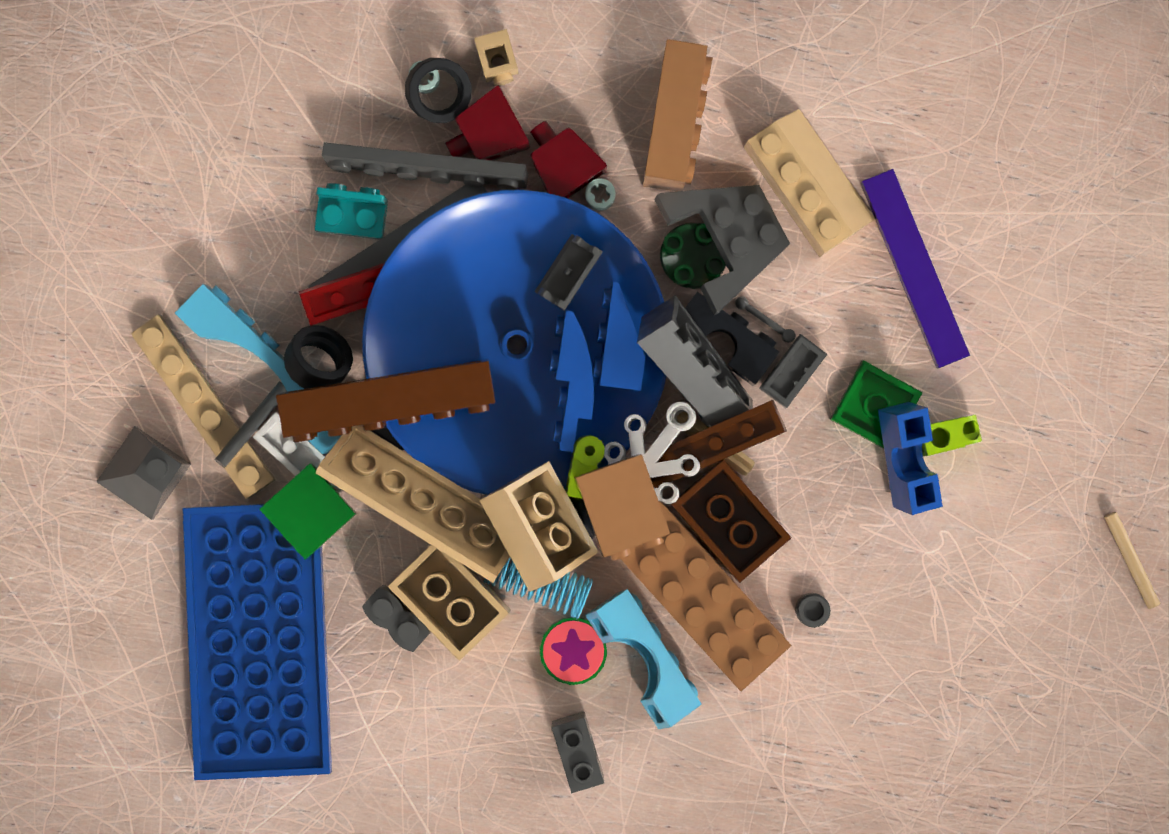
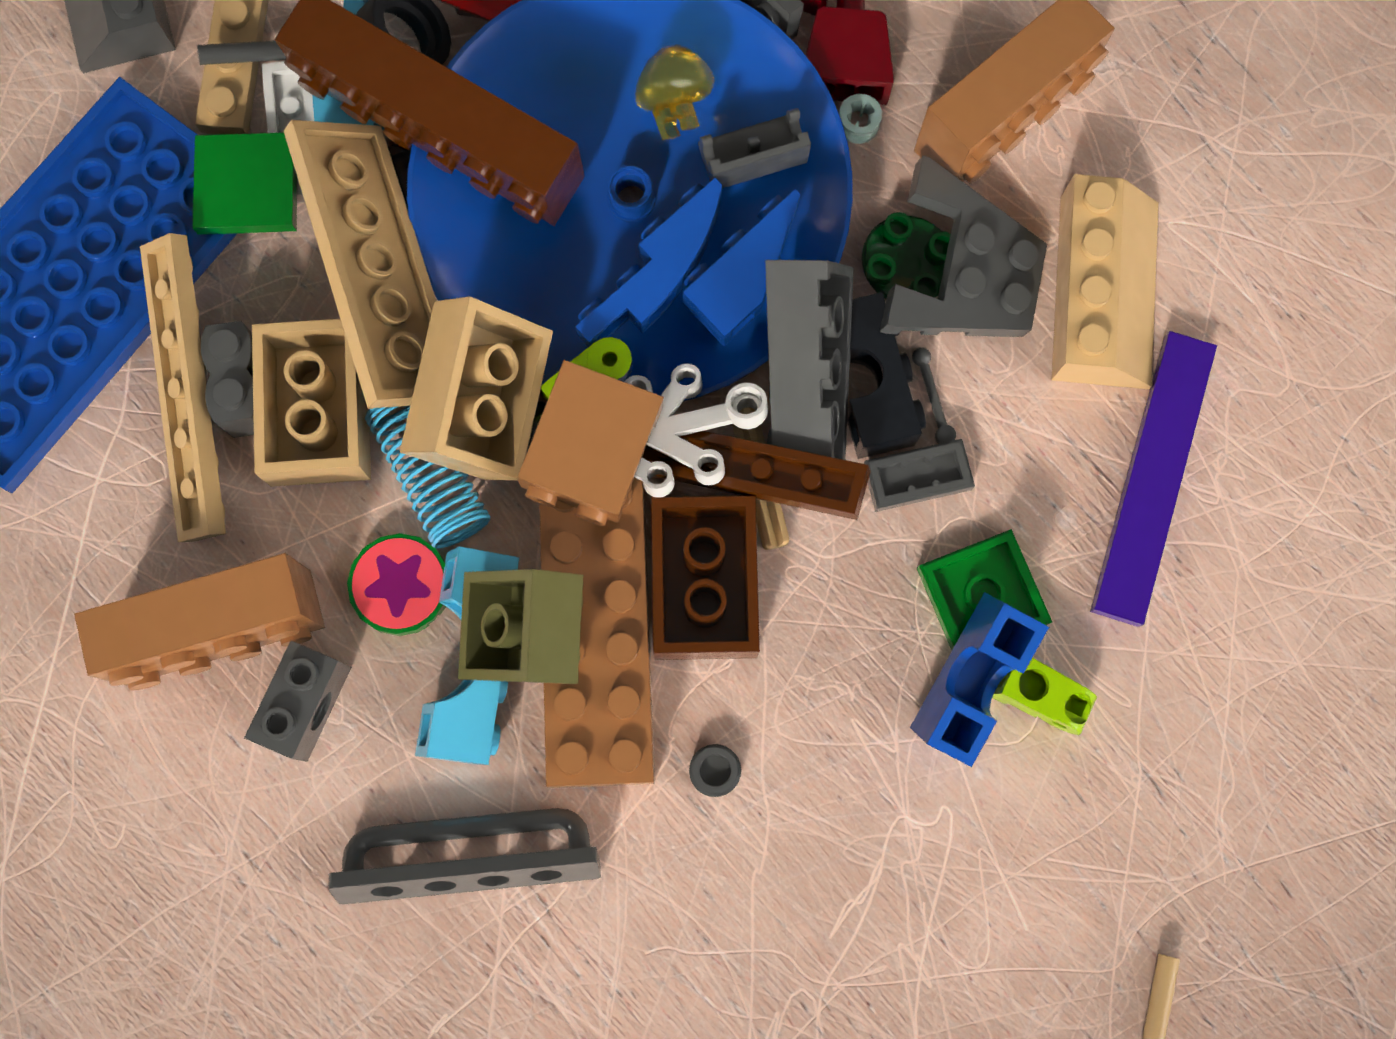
camera: 30 degrees right, 10 degrees down
(375, 646) = (182, 388): none -> tan plate
(497, 754) = (200, 622): none -> medium nougat brick
(498, 276) = (671, 85): none -> clear yellow piece
(666, 628) = (521, 626): none -> olive brick
(783, 714) = (465, 875): none -> dark grey piece

